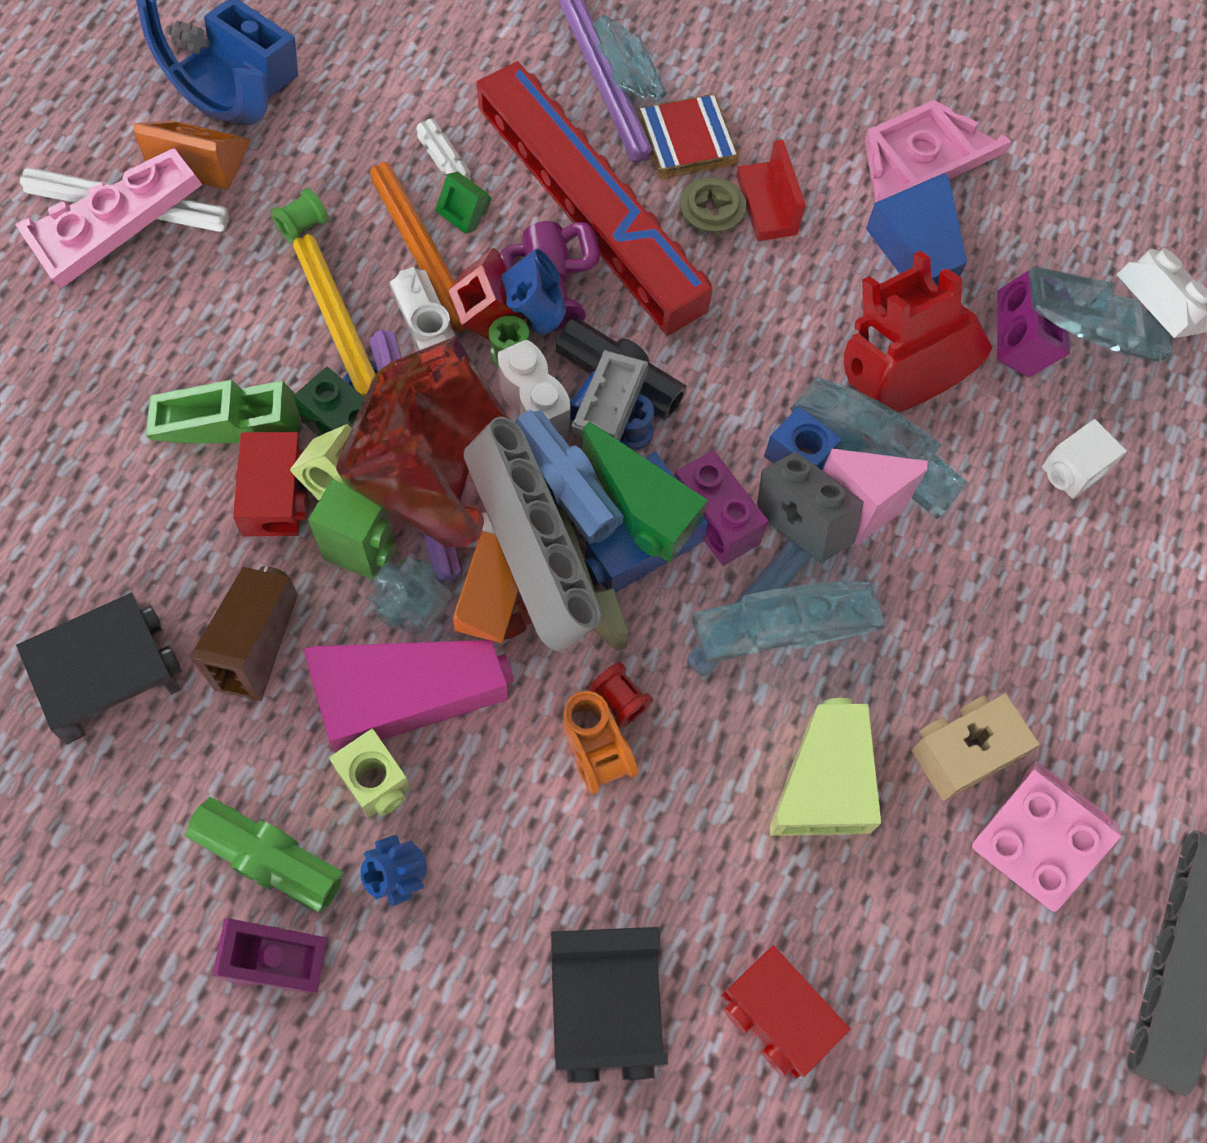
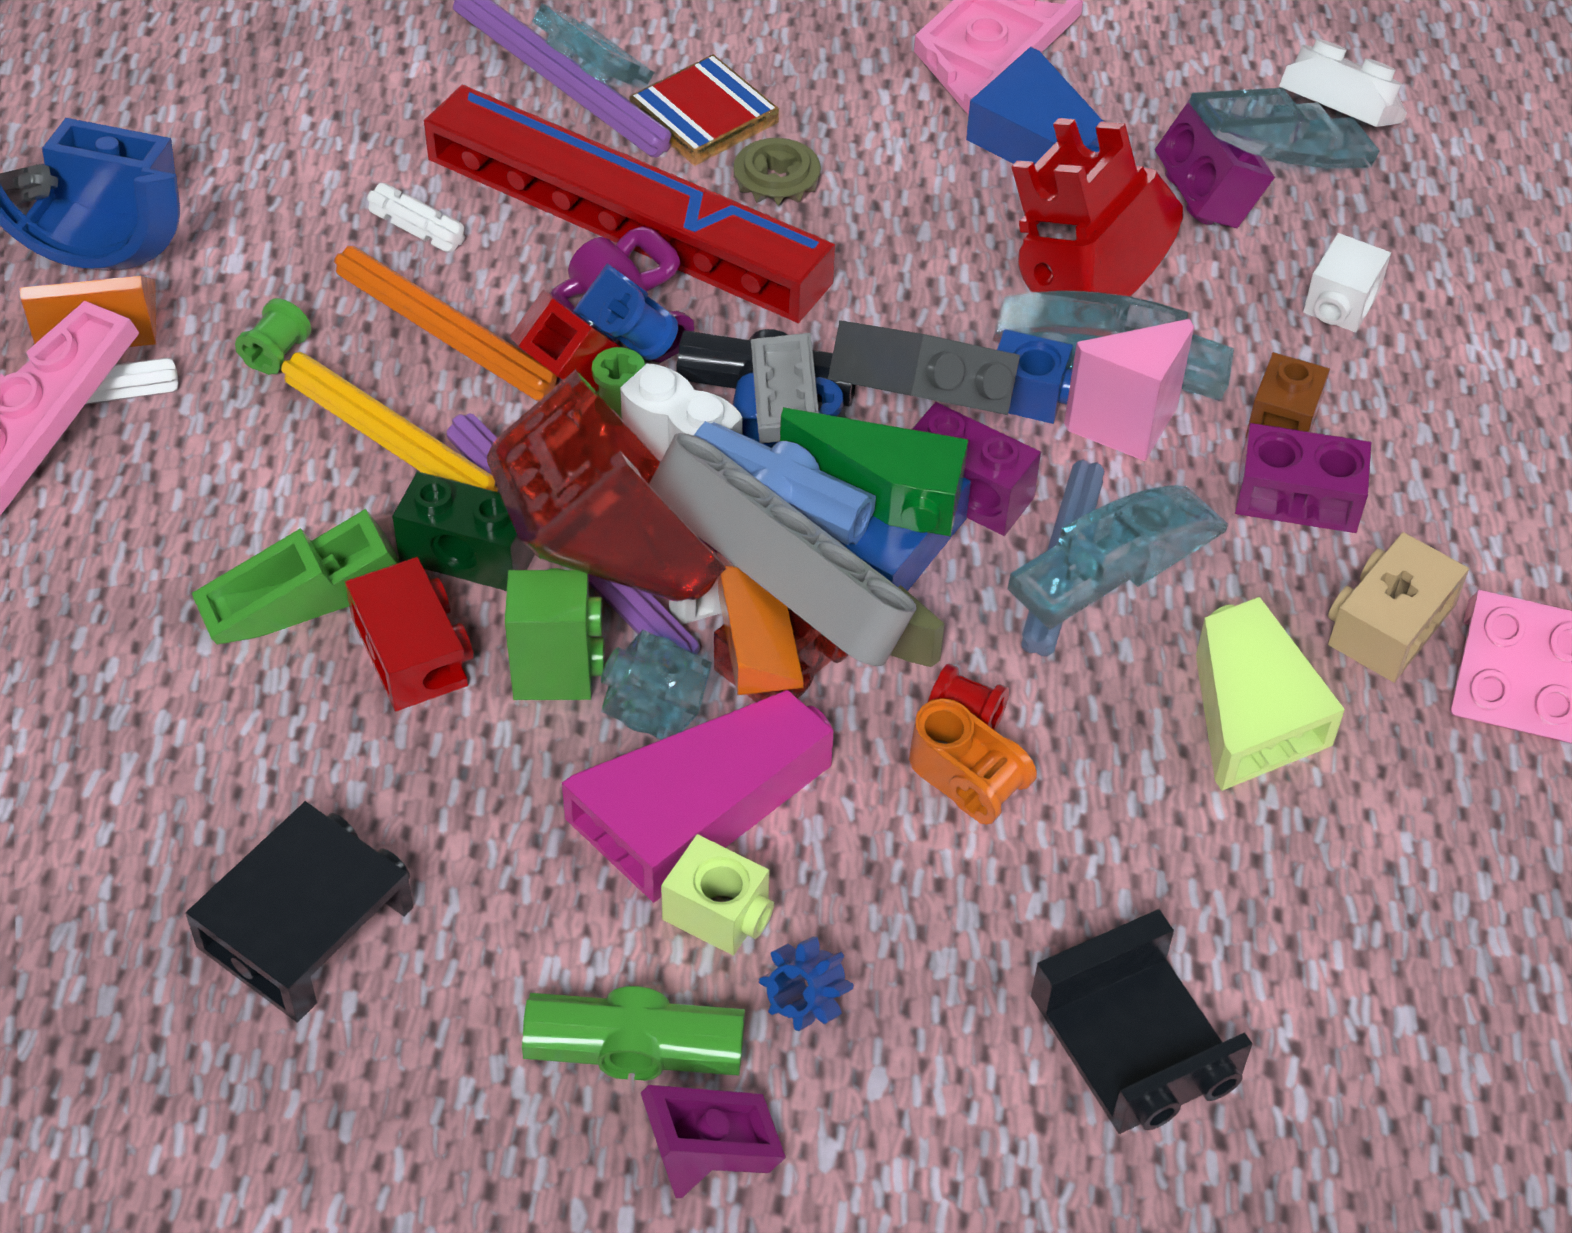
camera: 20 degrees left, 15 degrees down
(247, 633) = (478, 801): reddish brown slope -> none
(319, 461) = (490, 548): yellowish green brick -> none
(421, 308) = (487, 384): white piece -> none
(462, 202) = (472, 257): green tile -> none
(715, 422) = (924, 366): none -> dark grey brick
(772, 195) = (844, 133): red panel -> none
(783, 1014) = (1348, 952): red brick -> none
(809, 506) = (1079, 423): dark grey brick -> none
(955, 620) = (1303, 478): none -> magenta brick
(983, 543) = (1289, 394): none -> dark orange brick

